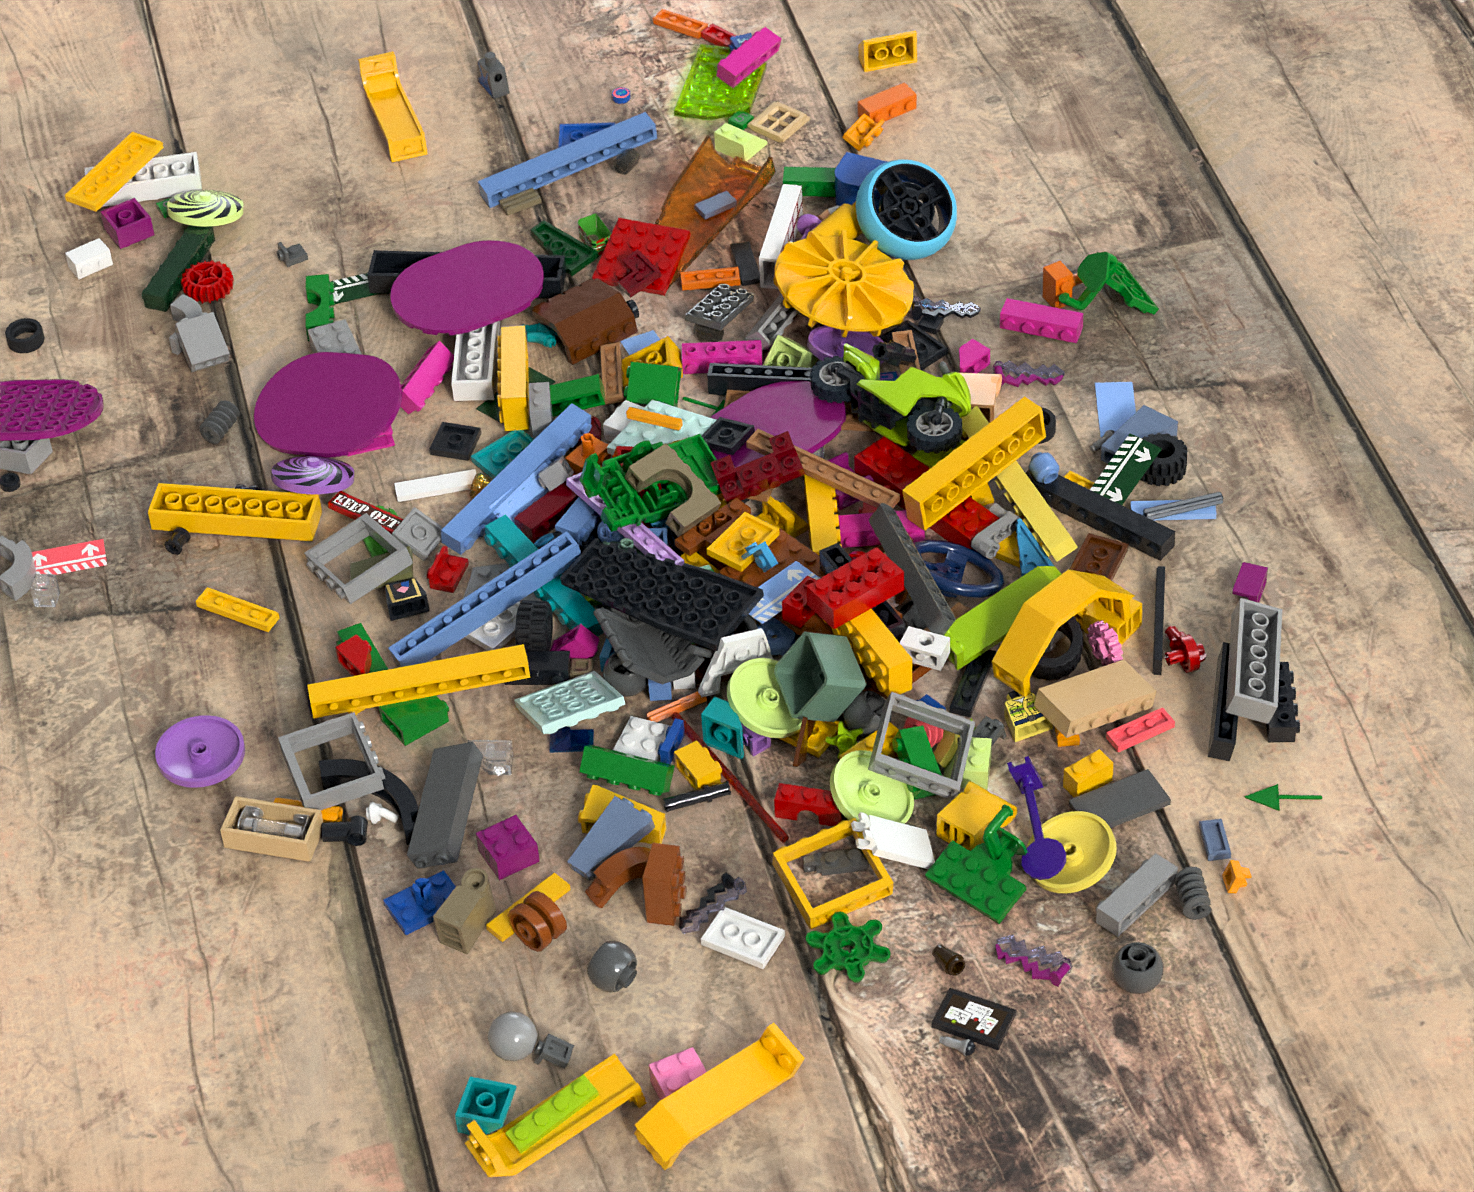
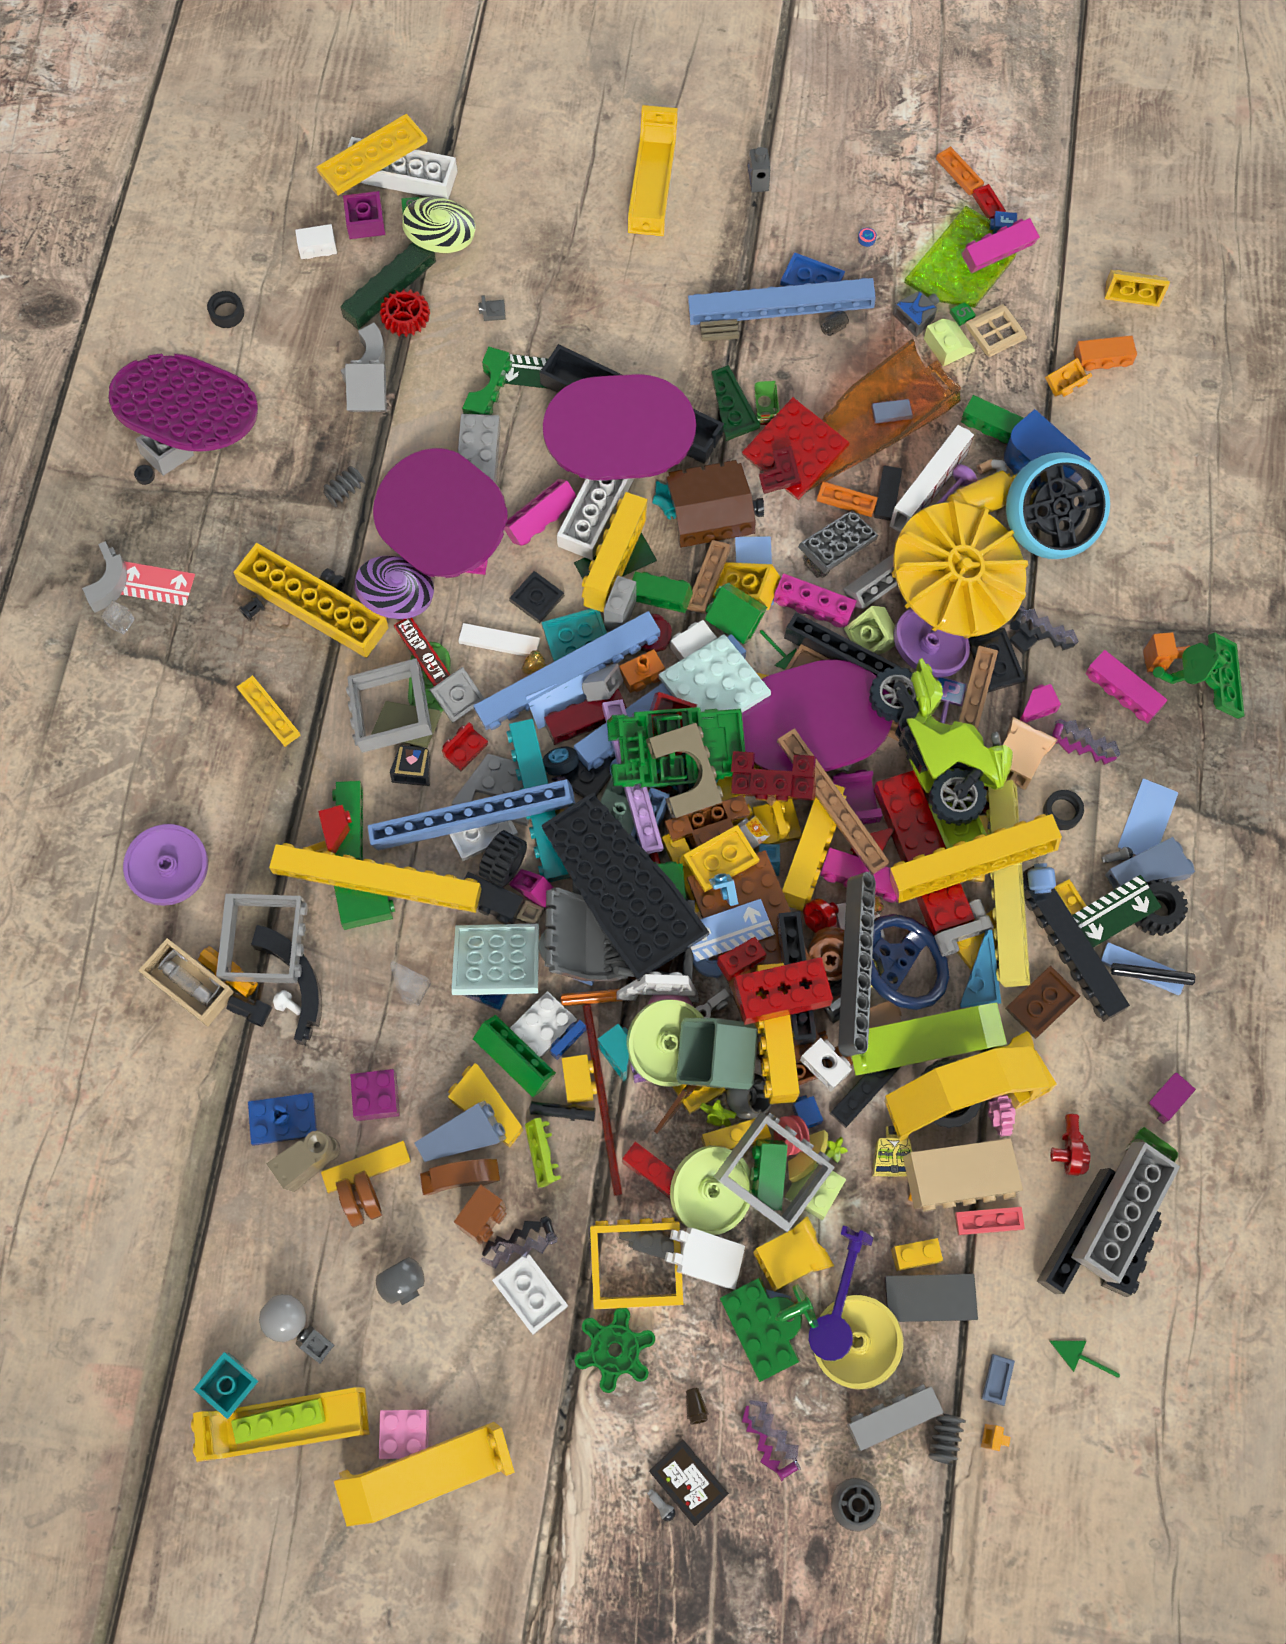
camera: 20 degrees right, 25 degrees up
(445, 805) = (340, 1027): dark grey brick -> none
(654, 418) = (712, 664): light orange axle -> none
(693, 832) = (541, 1152): none -> lime plate
(695, 129) = (916, 311): none -> dark grey torso
(727, 435) = (767, 713): black plate -> none
(894, 353) = (962, 686): black piece -> none
(990, 729) = (850, 1161): dark grey bracket -> none
(1159, 620) = (1066, 1100): black tile -> none

